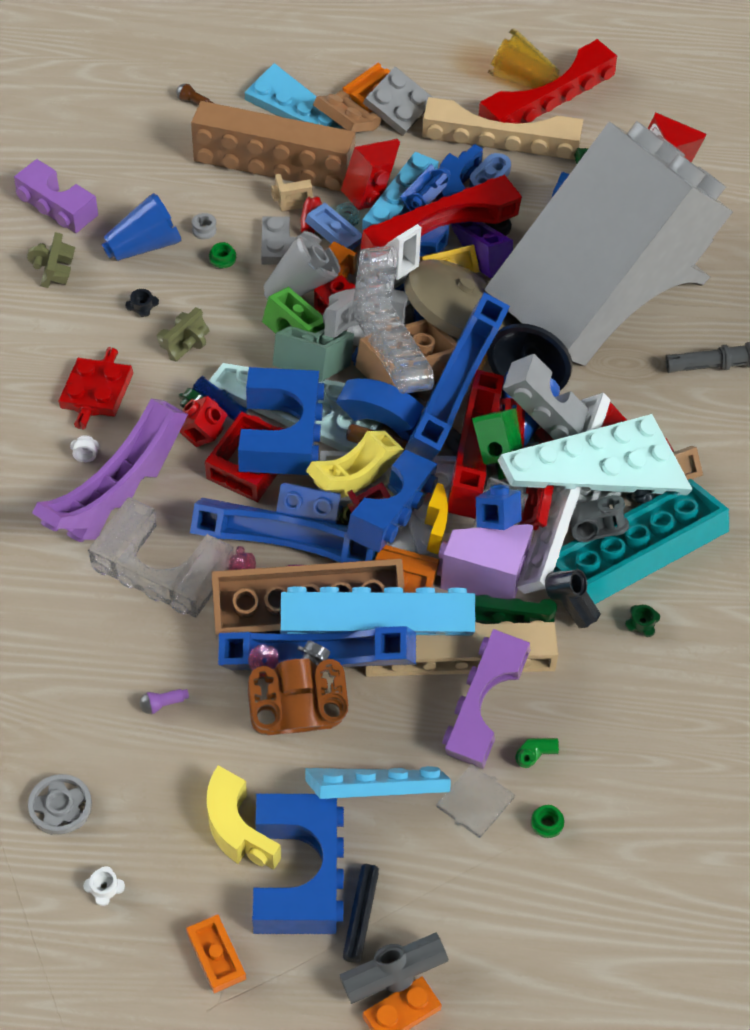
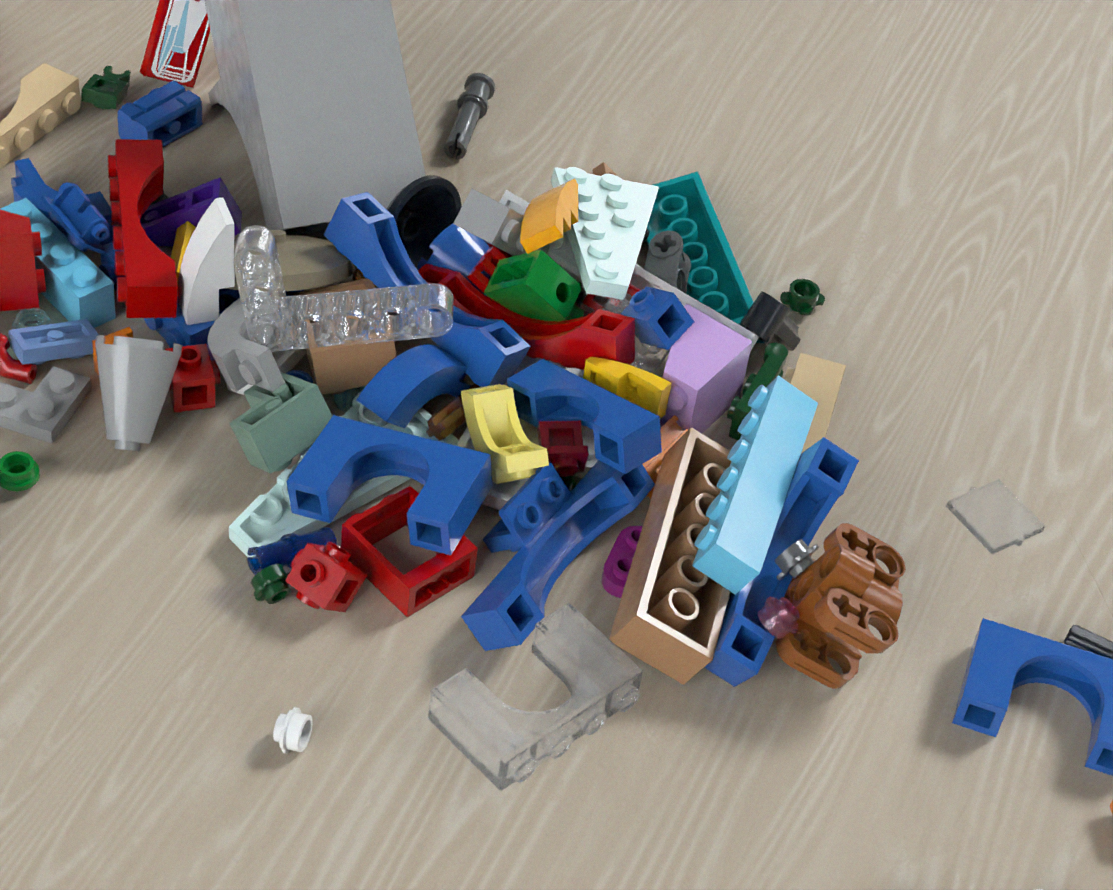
camera: 75 degrees left, 10 degrees down
(96, 387) = (179, 687): red plate -> none
(140, 456) = (430, 738): medium lavender arch -> none
(142, 302) = (47, 586): black plate -> none
(152, 702) = (766, 779): medium lavender piece -> none
(186, 333) = (162, 542): olive hips -> none
(229, 831) = (974, 748): light yellow arch -> none
(242, 560) = (588, 608): clear pink plate -> none
(289, 309) = (186, 418): bright green brick -> none
(347, 783) = (965, 590): medium azure wing -> none
(492, 167) = (58, 168): medium blue plate -> none
(501, 661) = (917, 475): medium lavender arch -> none
(534, 748) = (942, 441): green arm -> none
(551, 813) = (1043, 461): green plate -> none
(568, 415) = (549, 216): none -> light orange slope

